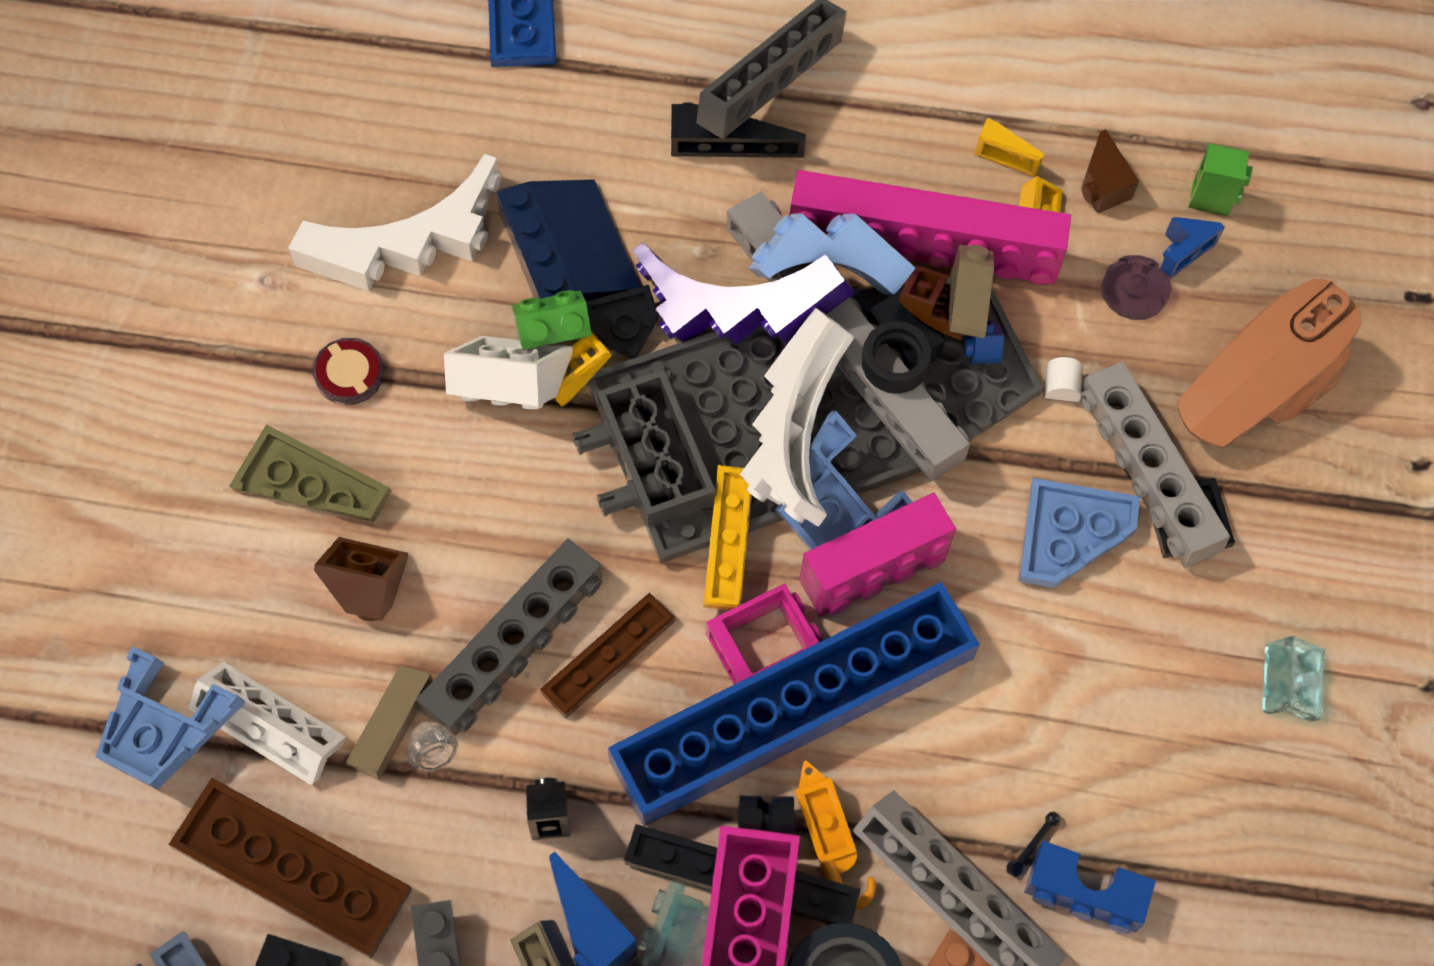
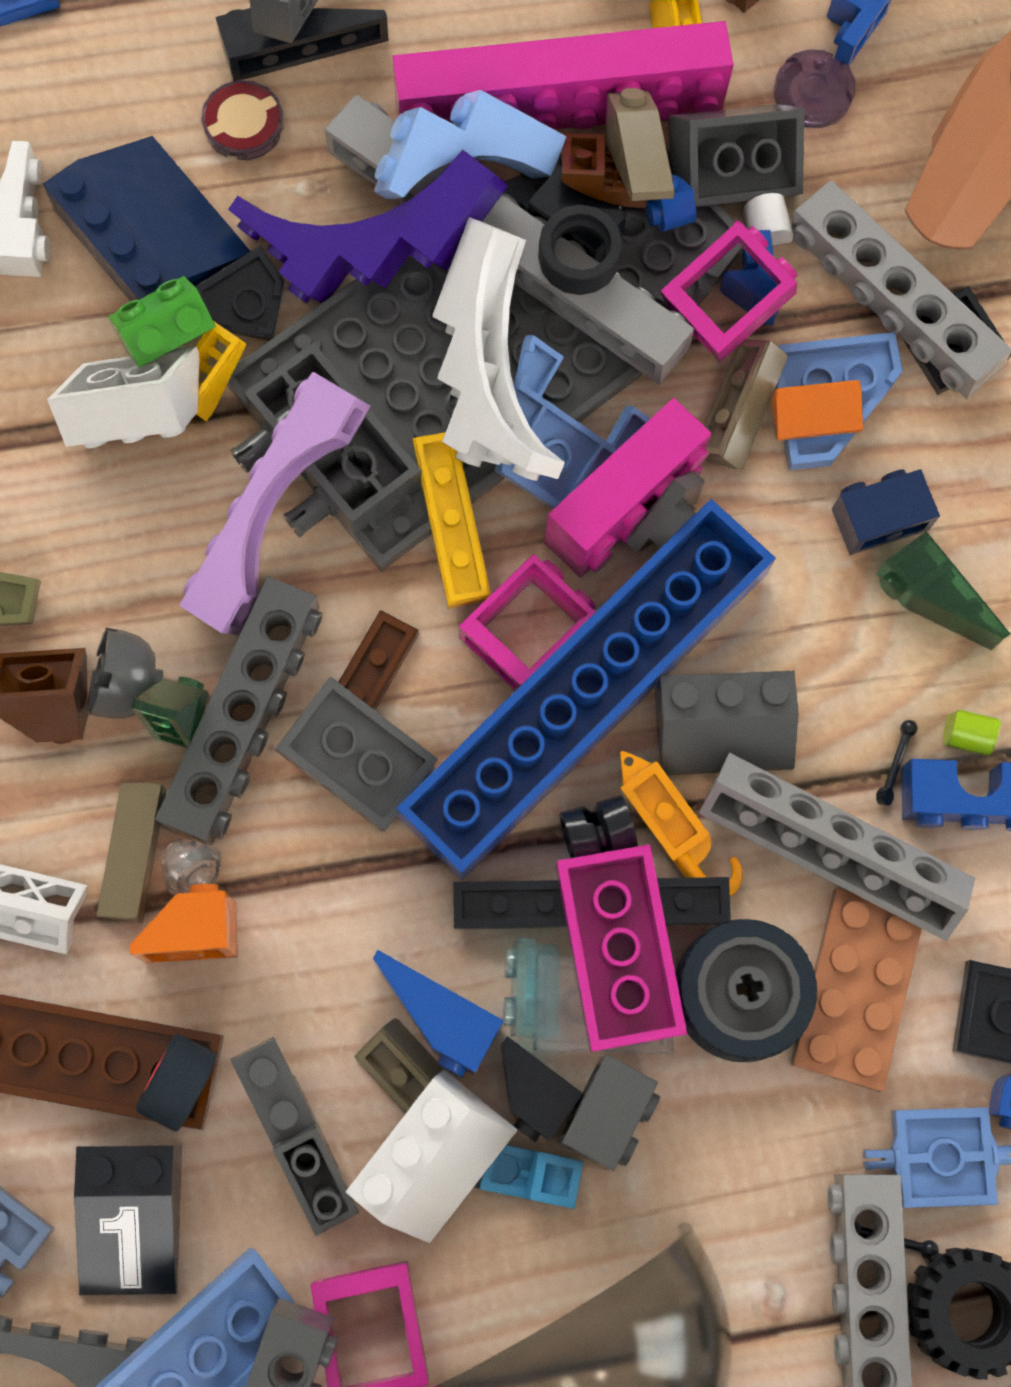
camera: 20 degrees left, 10 degrees up
(362, 907) = (176, 1082): none -> black wheel
(414, 793) = (191, 928): none -> orange slope
(430, 581) = (122, 673): none -> dark grey cylinder
(457, 618) = (172, 709): none -> clear green slope
(536, 532) = (228, 580): none -> lavender arch
(547, 809) = (348, 896): black slope -> none
(590, 697) = (355, 754): none -> dark grey plate
(668, 186) = (242, 119): none -> tile
(902, 758) = (723, 714): none -> dark grey slope
(908, 580) = (668, 513): none -> dark grey plate
(995, 464) = (705, 330): none -> dark pink window
(995, 516) = (743, 401): none -> dark tan slope
(1036, 427) = (751, 284): none -> blue slope
(1054, 320) = (739, 152): none -> dark grey slope
(1054, 538) = (817, 410): none -> orange slope
(1086, 636) = (885, 510): none -> dark blue brick
(1103, 836) = (971, 732): none -> lime brick
(1109, 713) = (935, 589): none -> clear green slope

